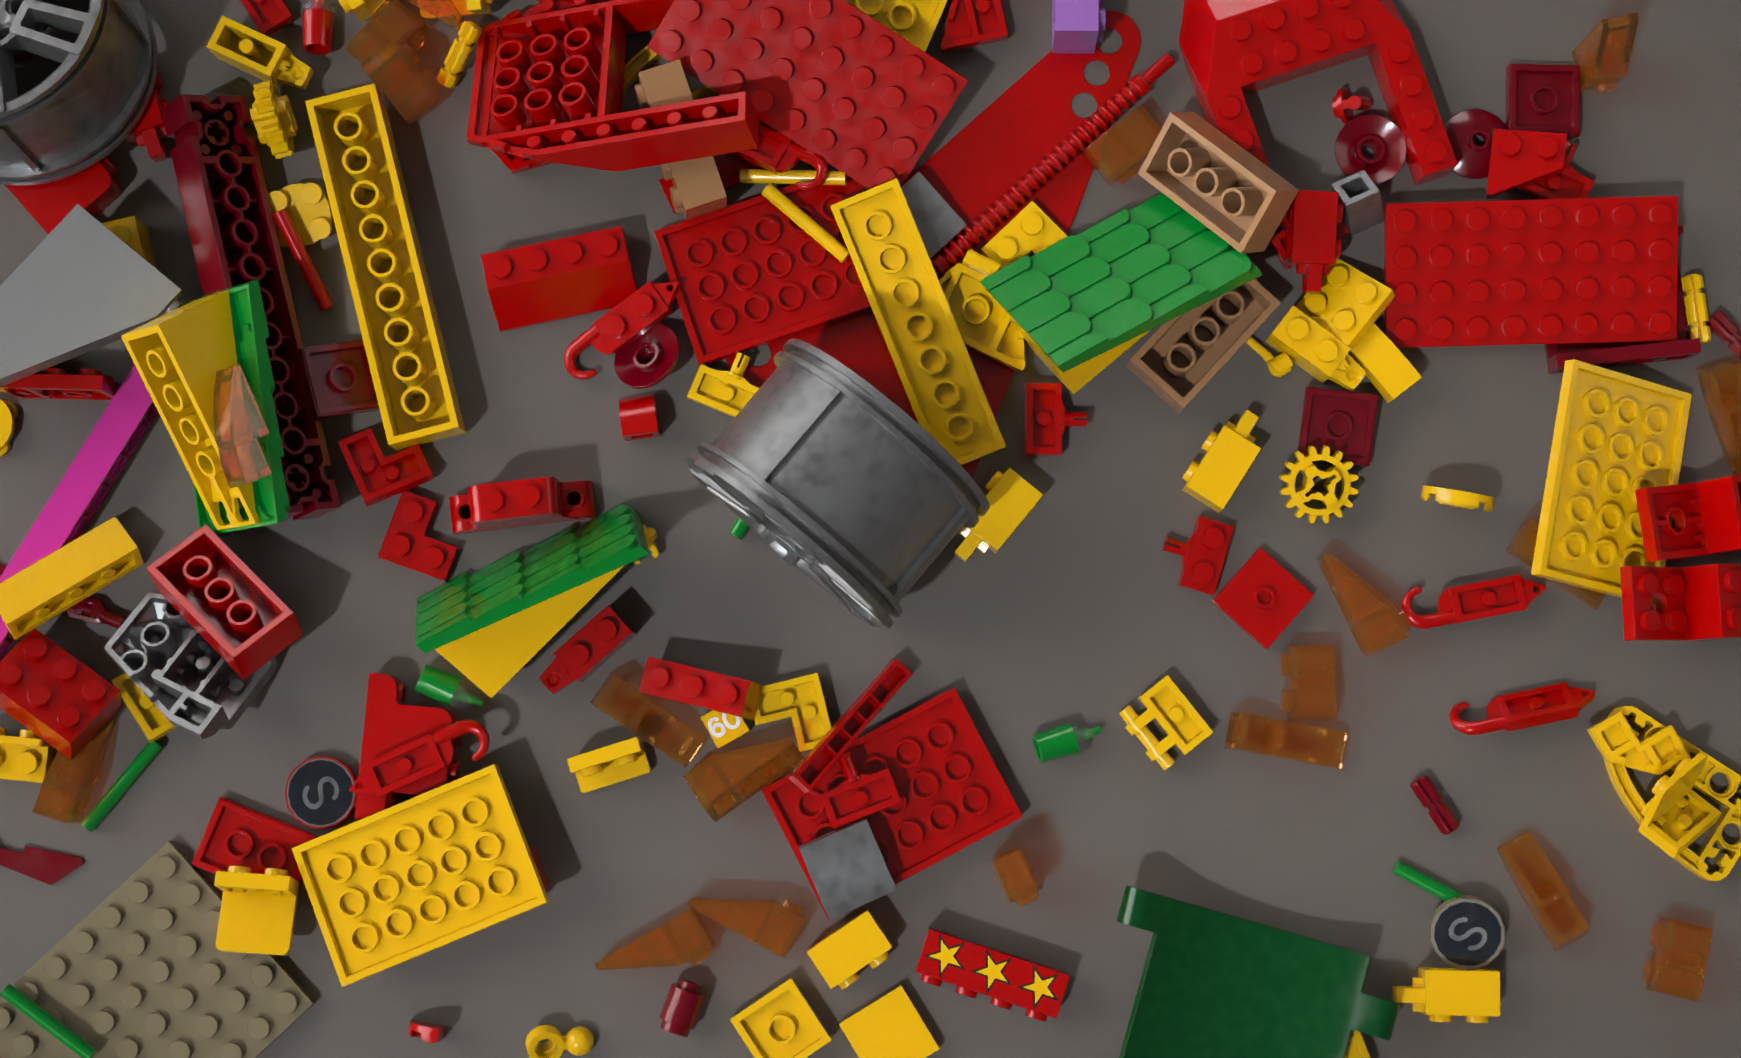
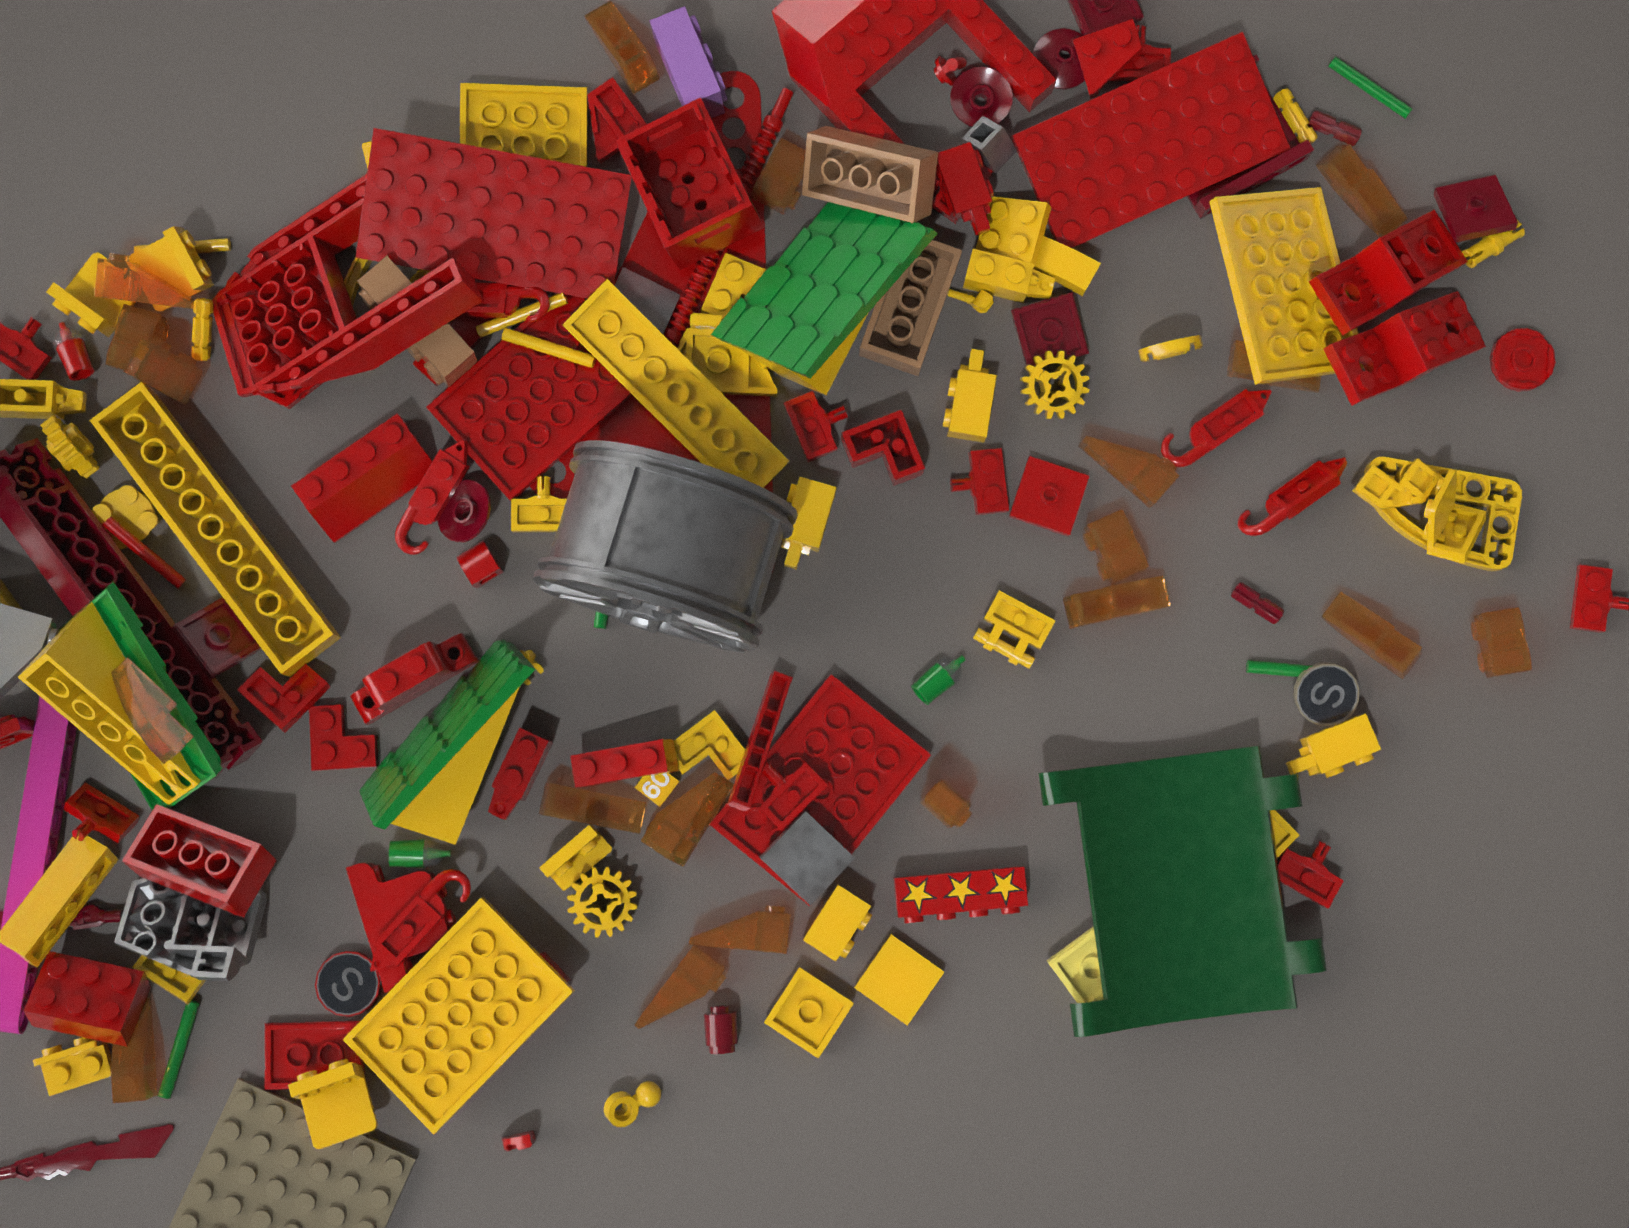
camera: 30 degrees left, 0 degrees up
(144, 509) = (99, 814): none -> red plate
(614, 837) = (598, 886): none -> yellow gear
(1002, 77) = (659, 161): none -> red container
(1119, 467) = (885, 438): none -> red brick

